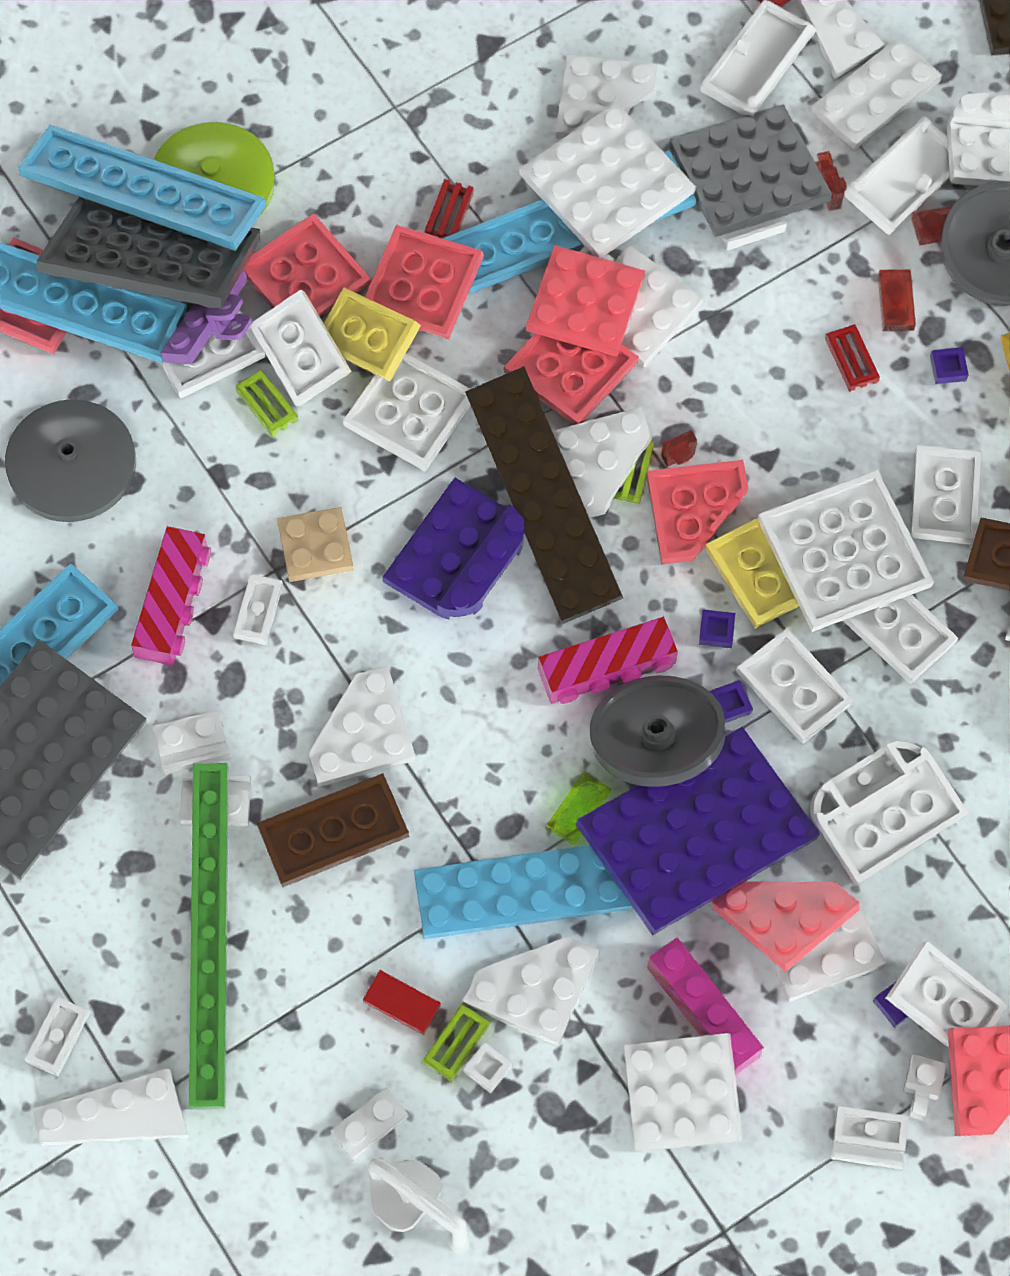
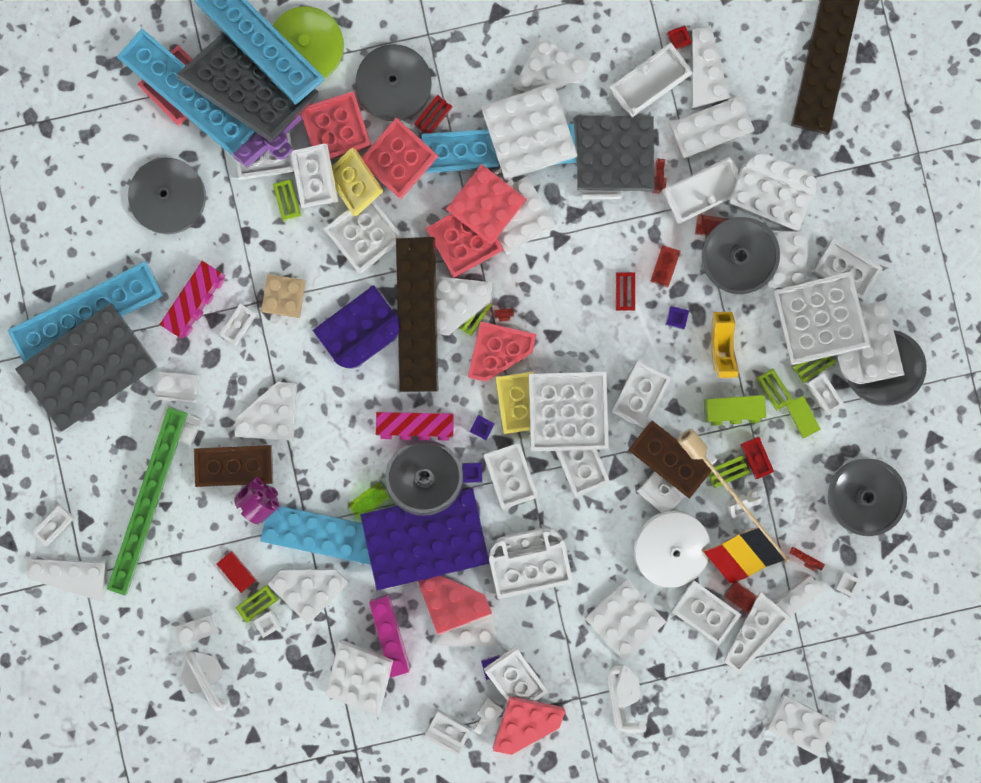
camera: 20 degrees right, 20 degrees up
(369, 185) = (398, 98): none -> dark grey dish
(398, 861) = (257, 501): none -> magenta brick

